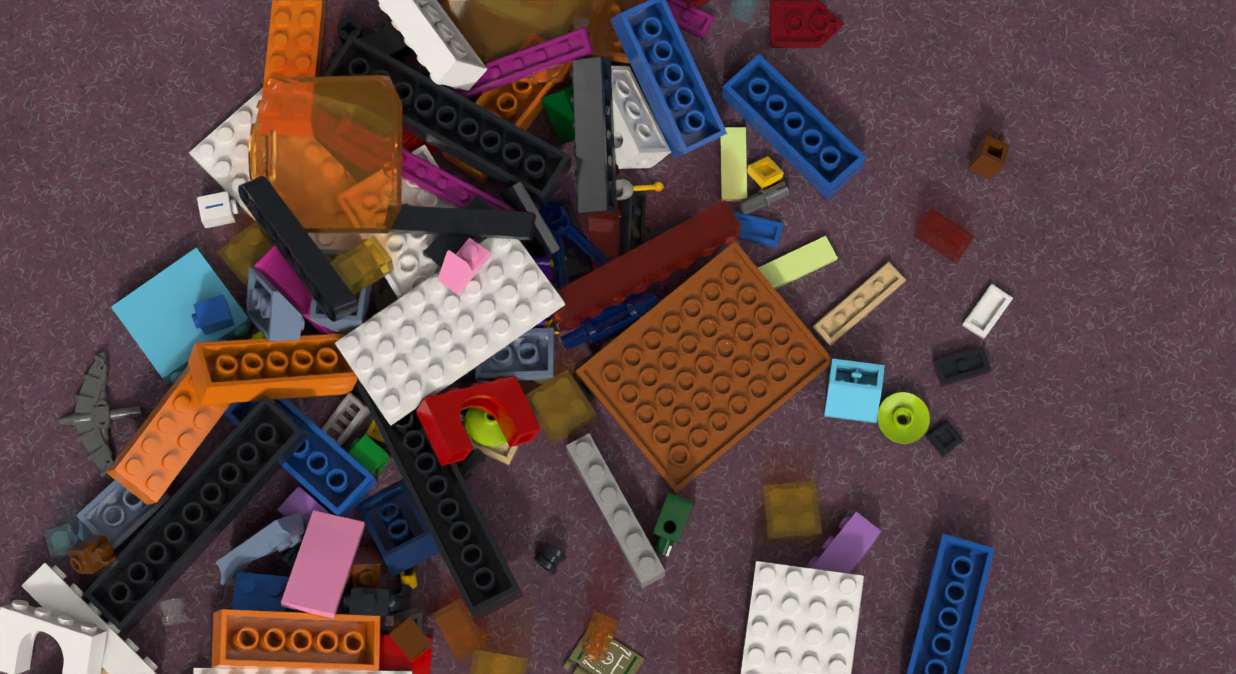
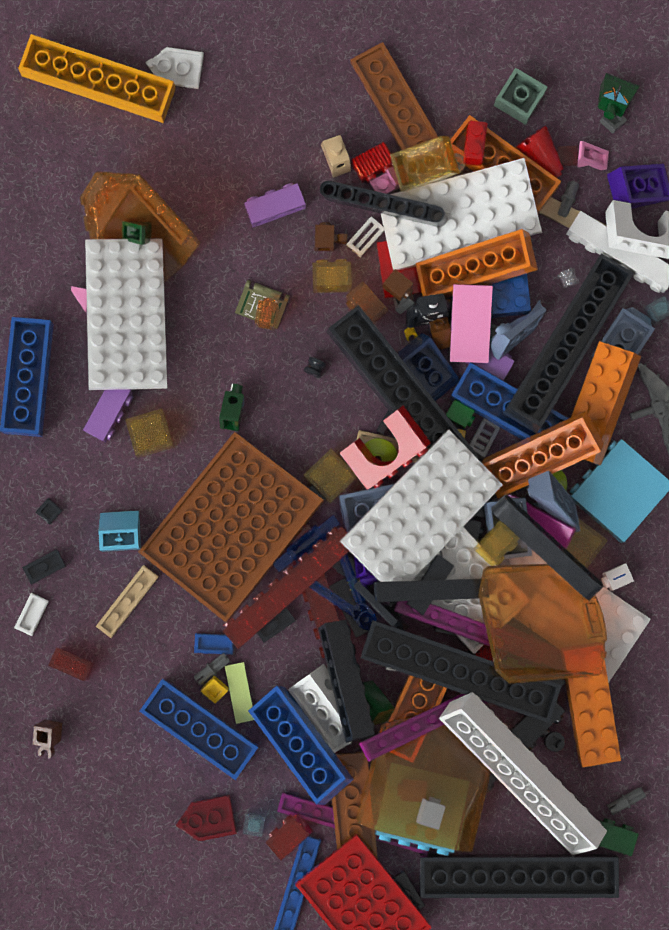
camera: 160 degrees right, 10 degrees up
(91, 554) = (635, 301): reddish brown brick -> none
(212, 315) = (597, 489): blue brick -> none
(461, 267) = (420, 555): bright pink slope -> none
(615, 510) = (275, 409): light grey arch -> none
(625, 189) = (313, 650): light grey hinge -> none
(632, 222) = (305, 627): black tile -> none
(799, 262) = (178, 623): yellowish green tile -> none
(912, 409) = (71, 516): lime dish -> none

